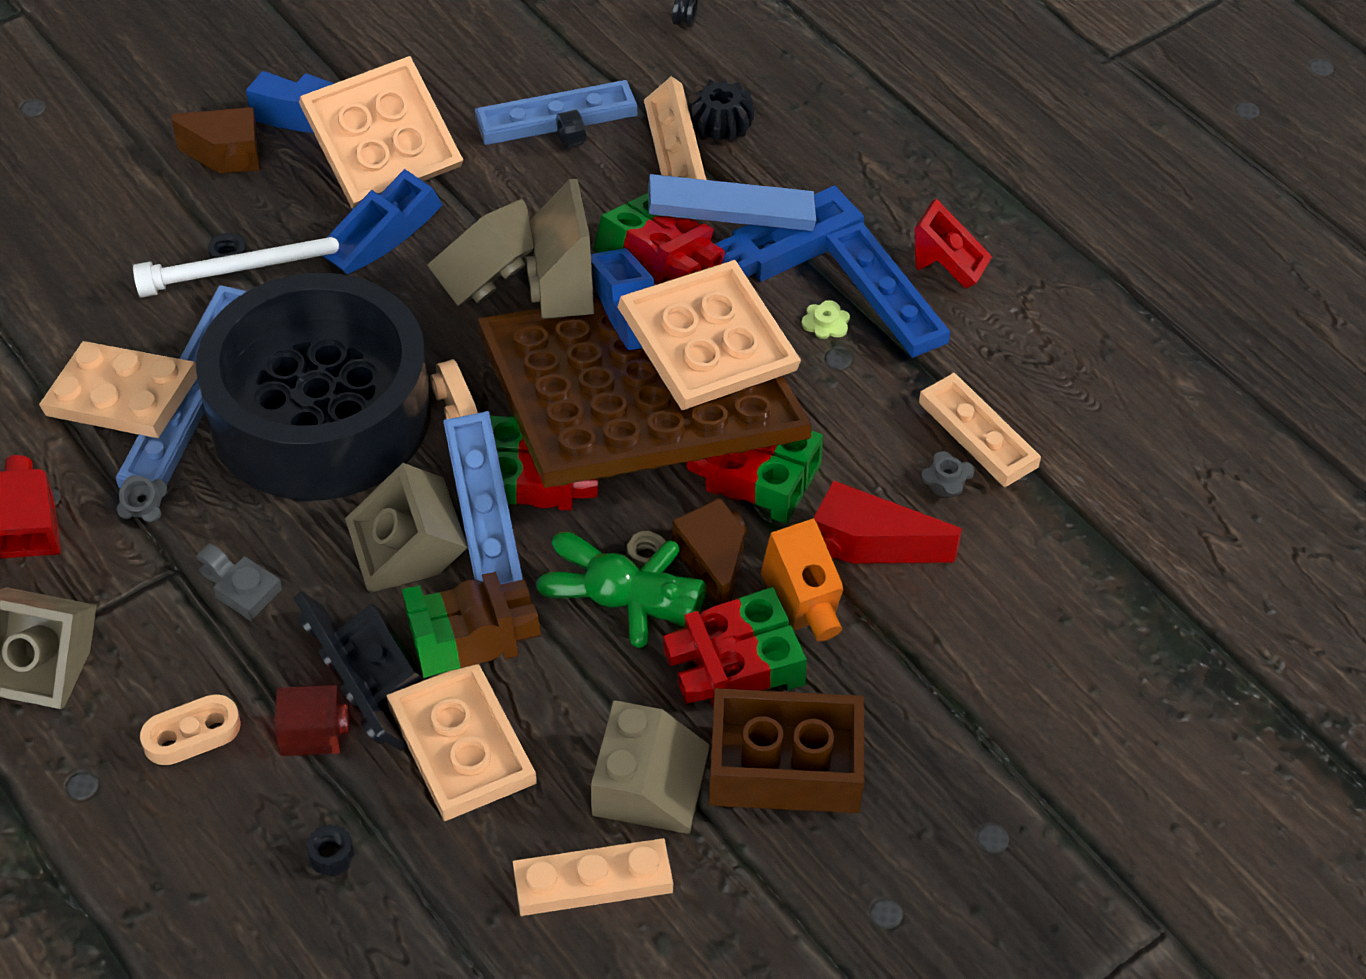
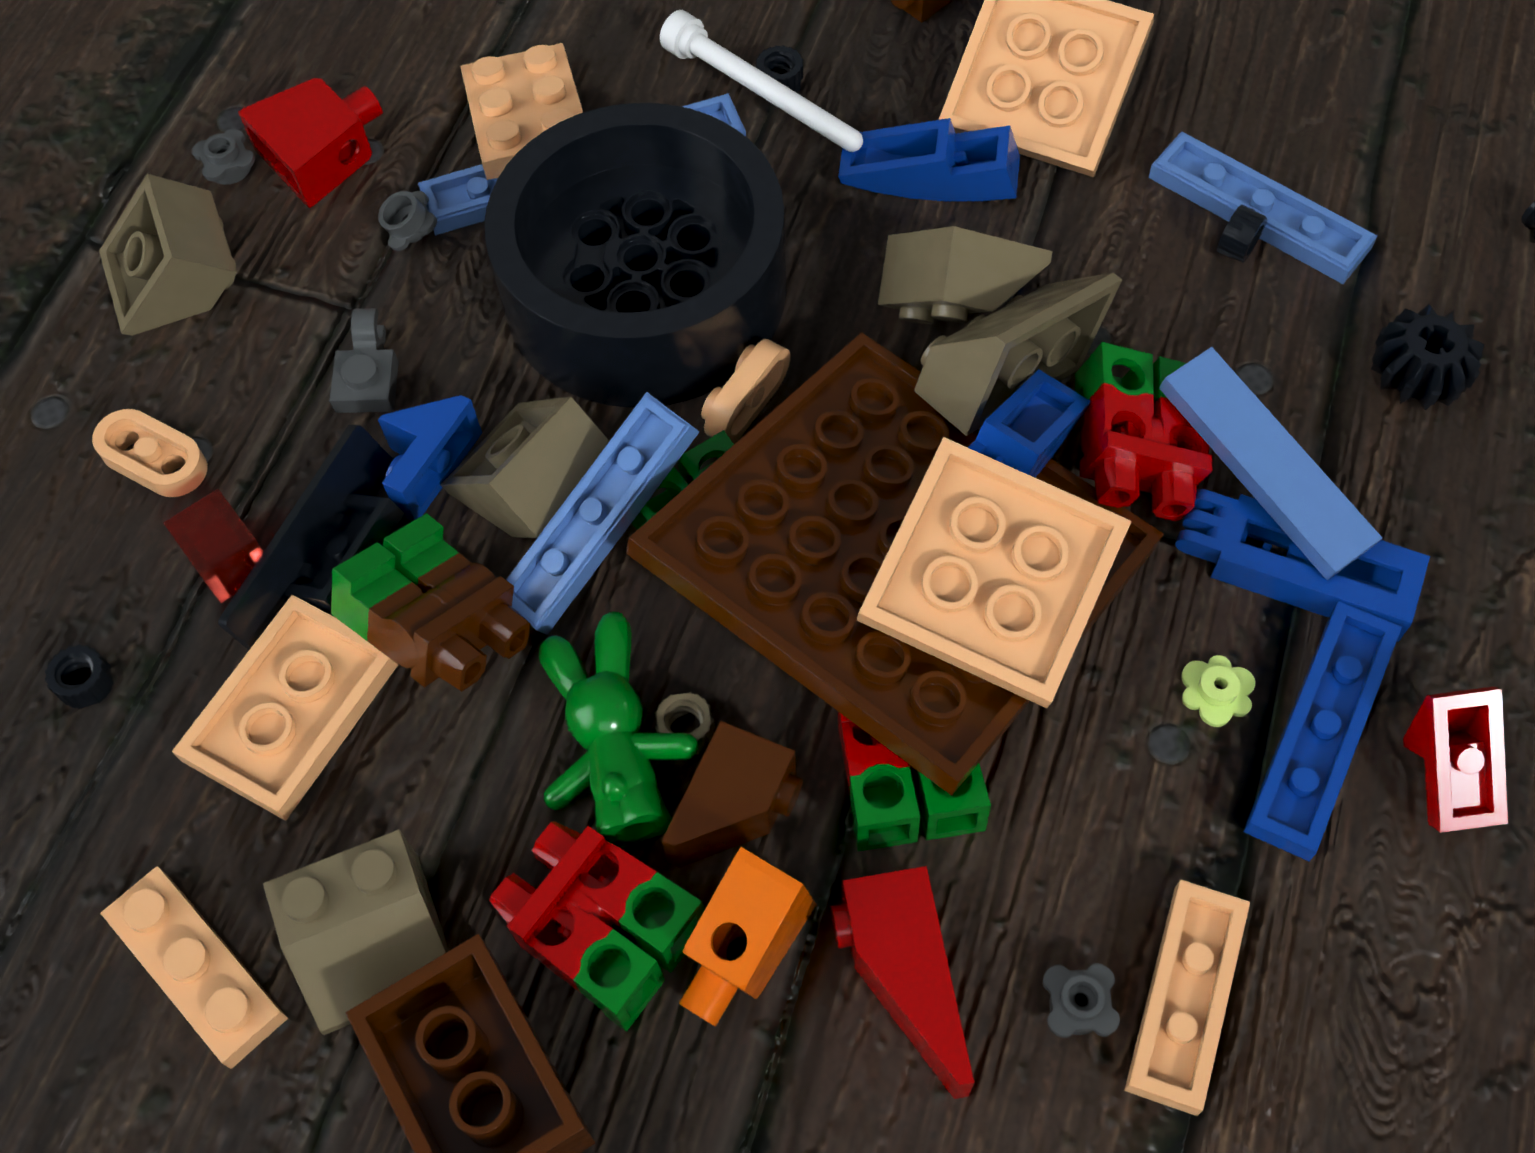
camera: 60 degrees right, 10 degrees up
(340, 572) = (430, 447): none -> blue slope
(673, 131) = (1332, 341): light nougat plate -> none

